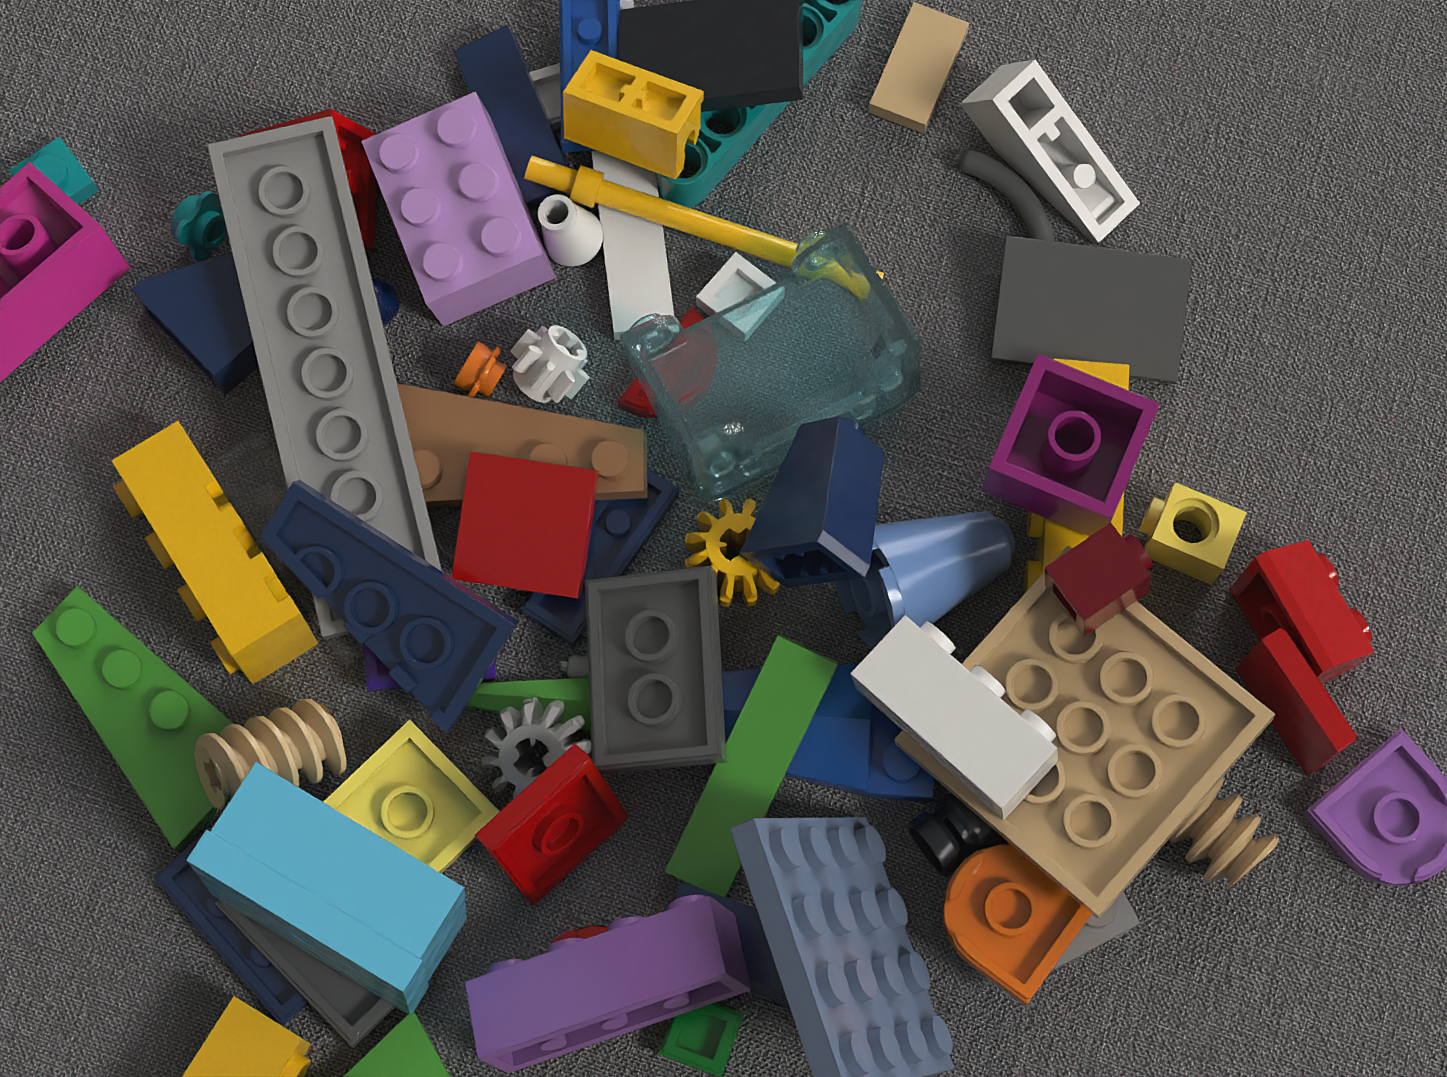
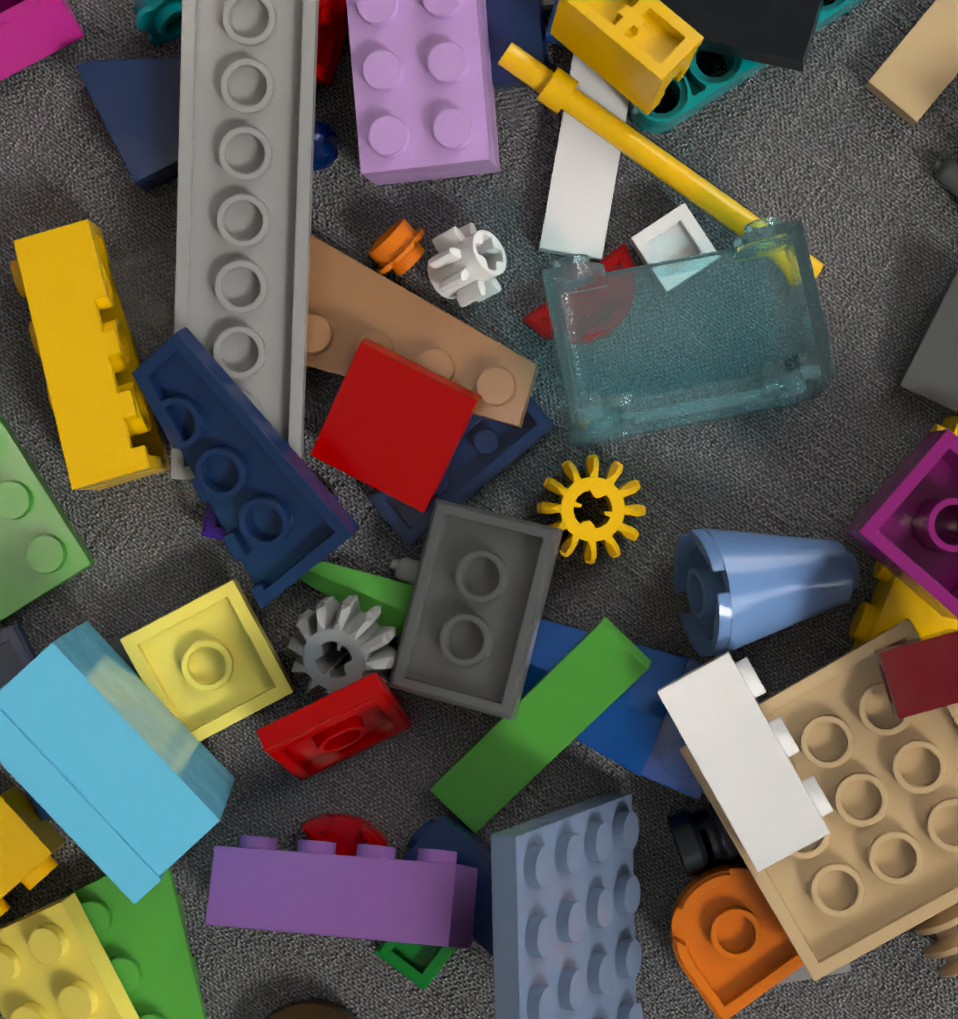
camera: 15 degrees right, 15 degrees up
(281, 743) = (92, 577): tan piece -> none
(569, 231) = (533, 143): white cone -> none
(820, 507) = (684, 505): dark blue slope -> none

